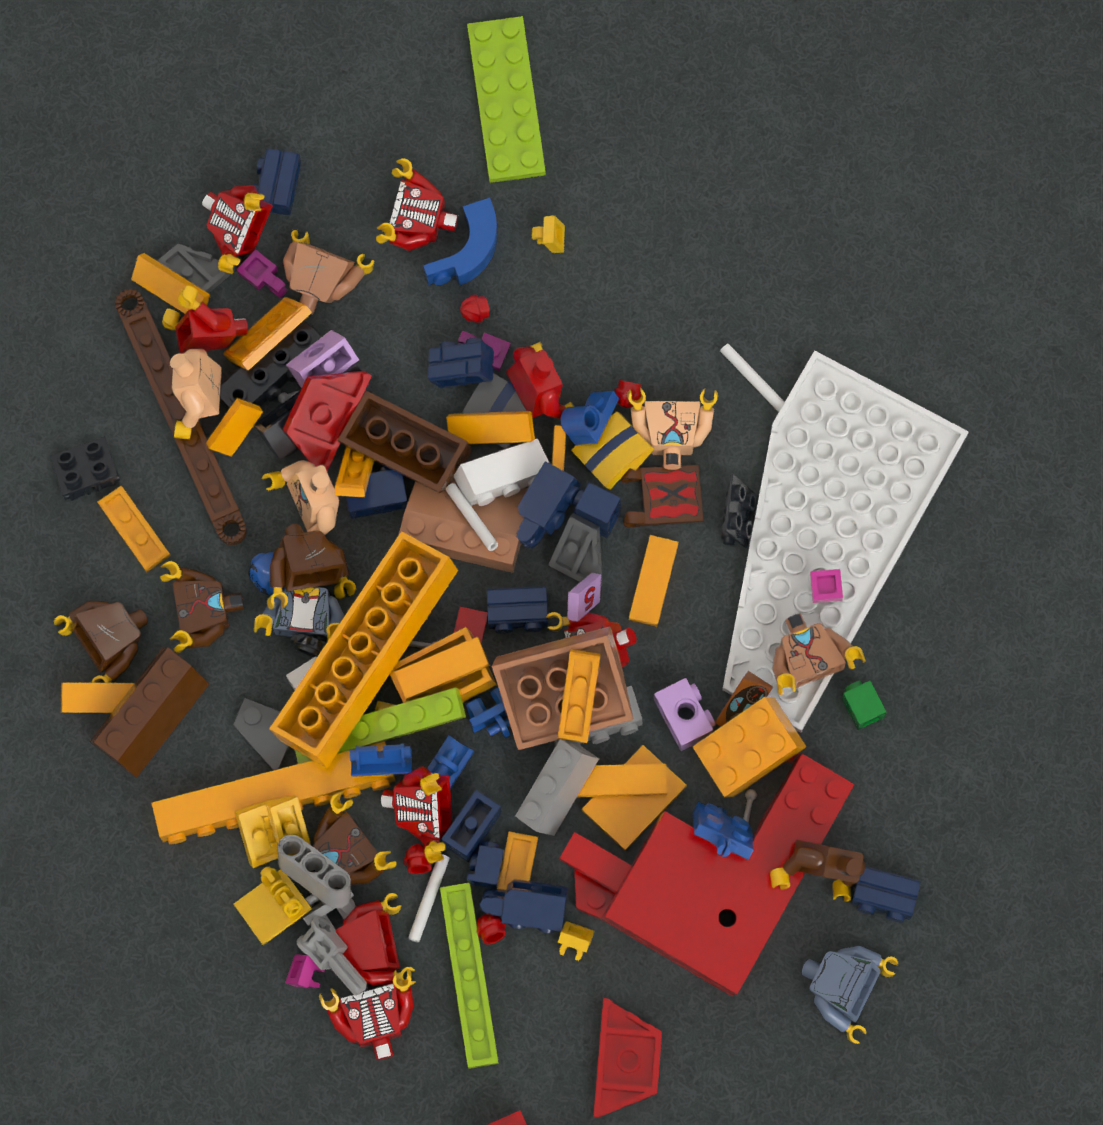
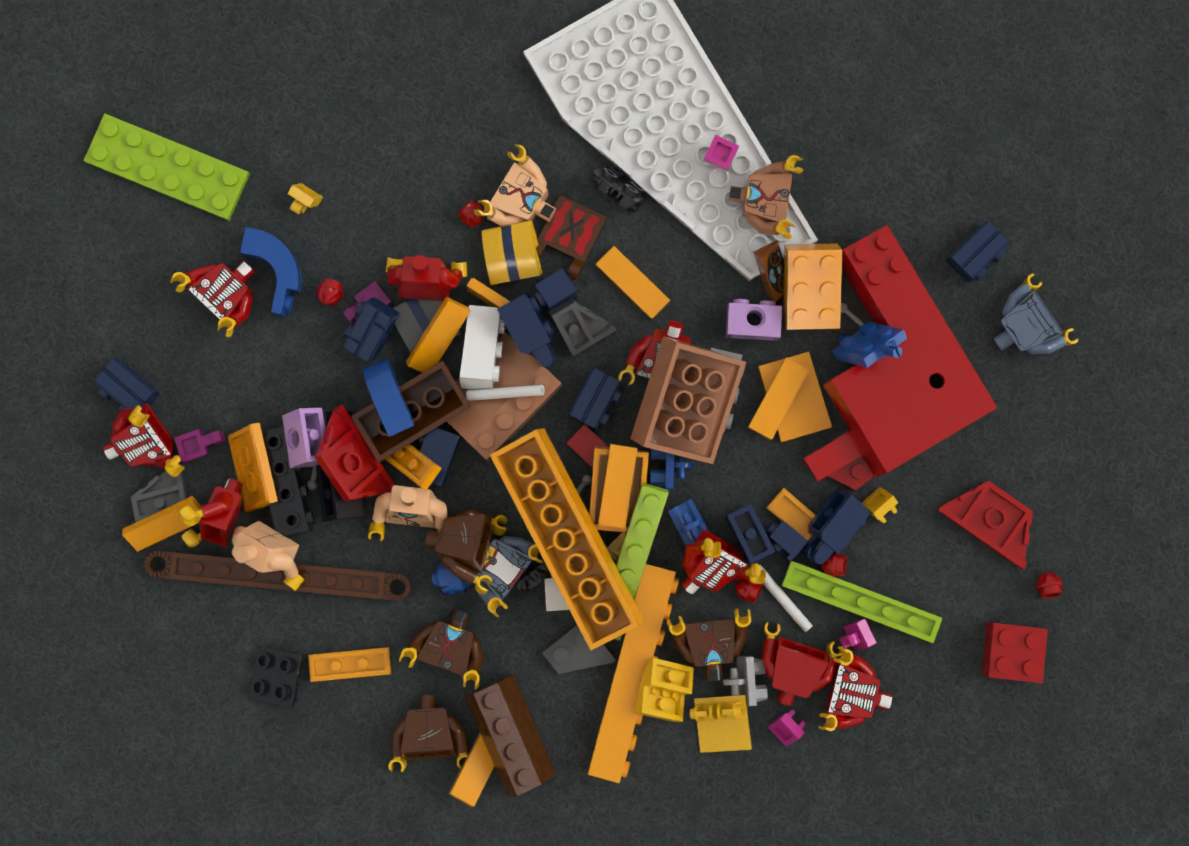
camera: 65 degrees left, 10 degrees up
(234, 427) = (316, 538): light orange tile -> none
(318, 883) = (732, 680): light grey beam -> none
(320, 273) = (226, 397): nougat torso -> none
(327, 951) = (785, 702): light grey connector -> none
(392, 760) = (663, 575): blue hinge -> none
(402, 411) = (387, 397): none -> blue arch
(433, 988) = (858, 635): none -> dark pink tile
(556, 787) = (759, 451): light grey brick -> none
(579, 696) = (706, 392): light orange tile -> none
(584, 597) = (620, 343): lavender tile -> none
(588, 422) = (479, 258): blue plate -> none
(749, 373) = (515, 111): white piece -> none
(824, 862) = (938, 282): reddish brown torso -> none
(863, 704) = (824, 182): green brick -> none

